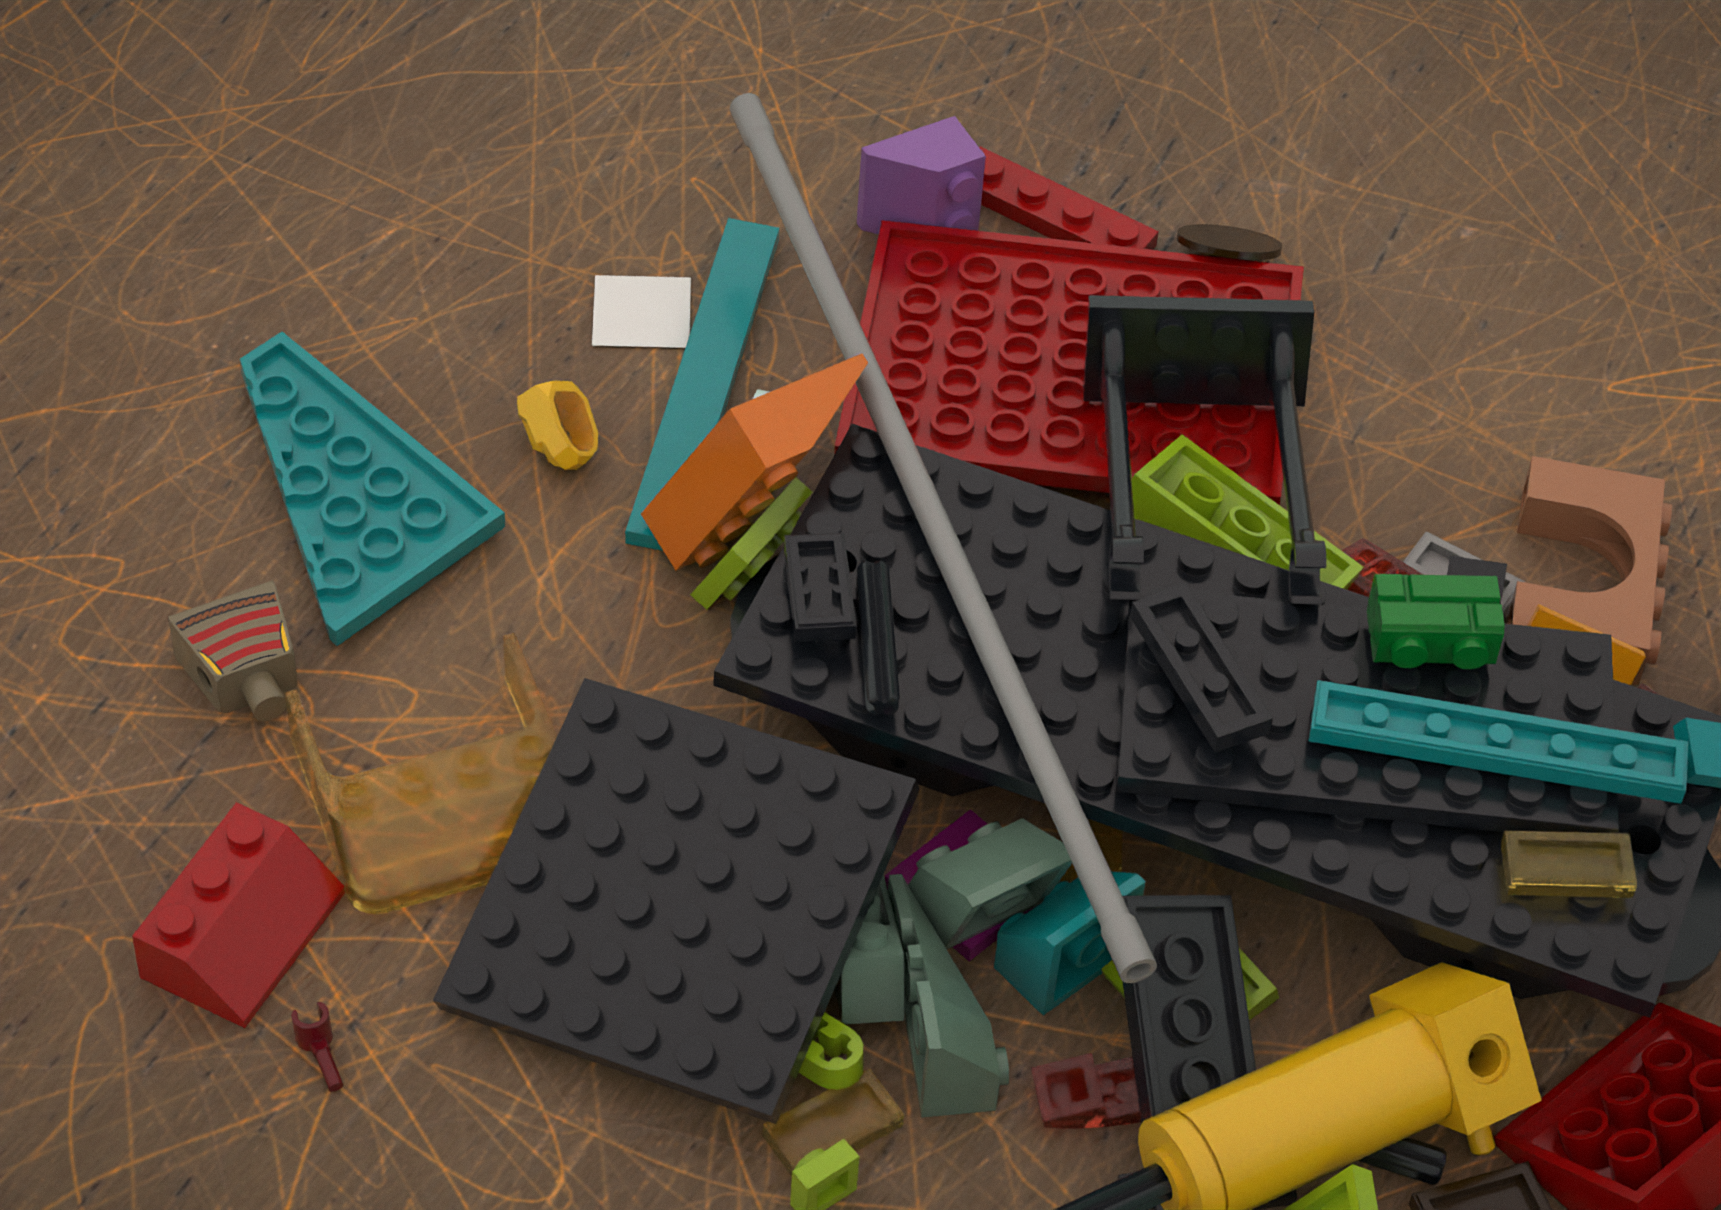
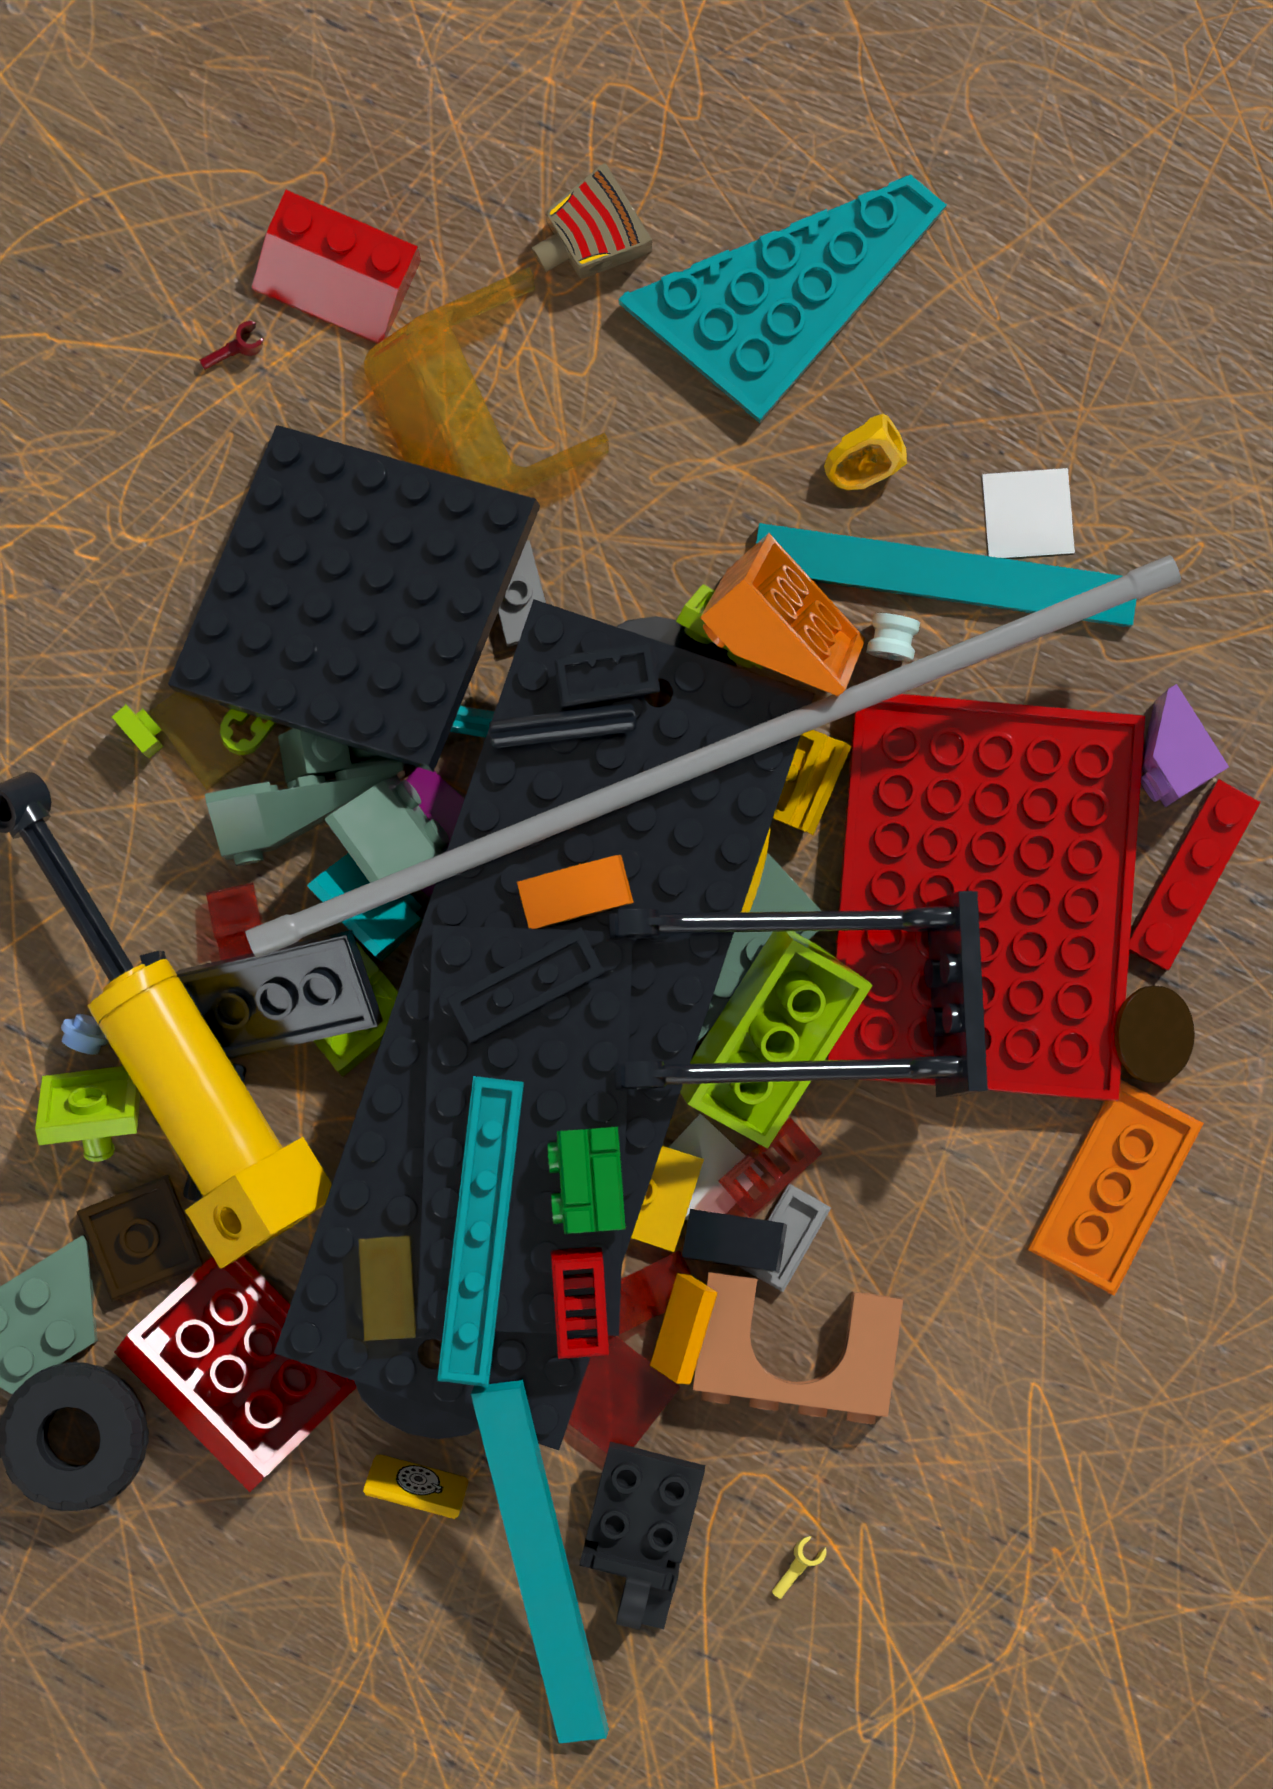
camera: 90 degrees right, 35 degrees up
(1082, 637) = (575, 892): none -> orange slope
(1397, 300) = (1115, 1187): none -> orange tile
(1555, 644) = (573, 1260): none -> red slope

